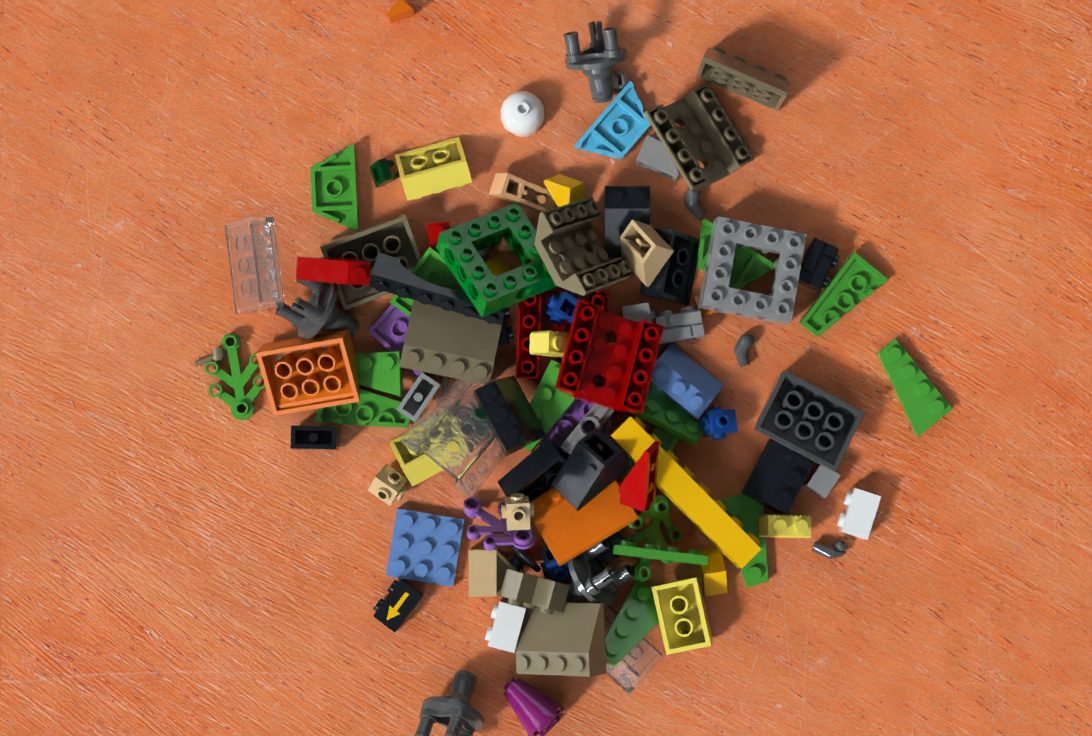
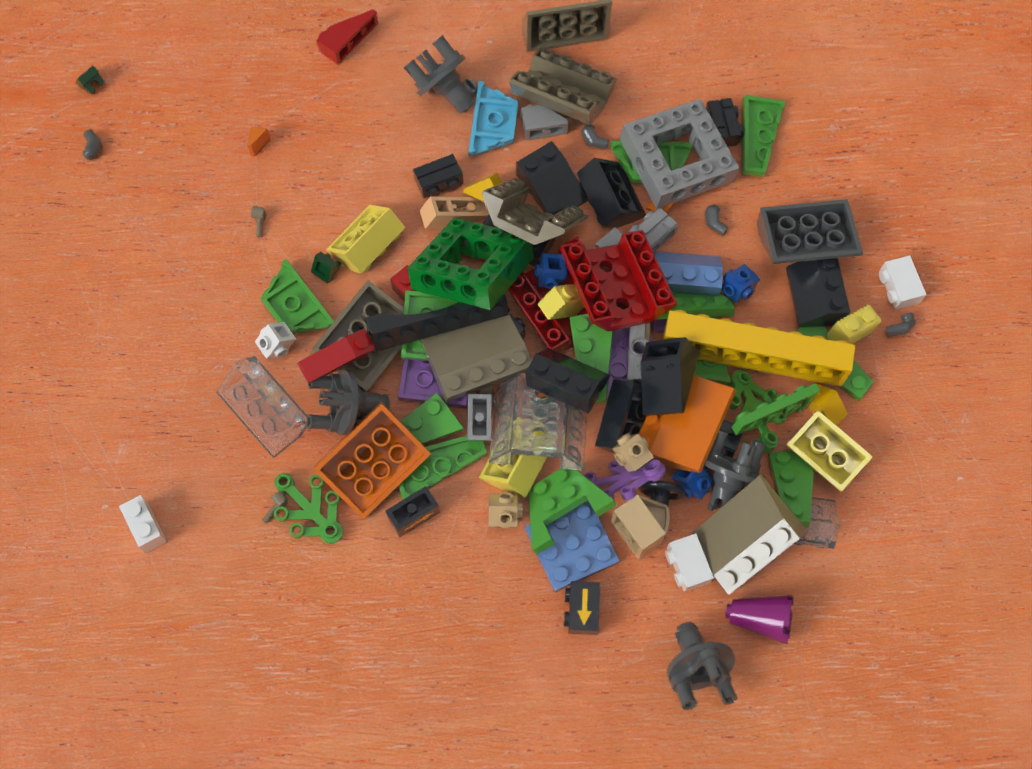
camera: 30 degrees left, 15 degrees down
(98, 304) = (143, 524): none -> white brick
(298, 214) = (275, 340): none -> white brick
(359, 84) = (258, 213): none -> dark tan hand
(439, 504) = (558, 496): none -> bright green wing
(522, 113) = (408, 153): white cylinder -> none
(532, 151) = (438, 176): none -> black brick
(534, 591) = (694, 510): dark tan brick -> none
(639, 486) = (719, 360): red slope -> none
(644, 250) = (583, 188): tan slope -> none
(822, 481) = (854, 275): light grey brick -> none
(917, 394) = (877, 170): bright green wing -> none

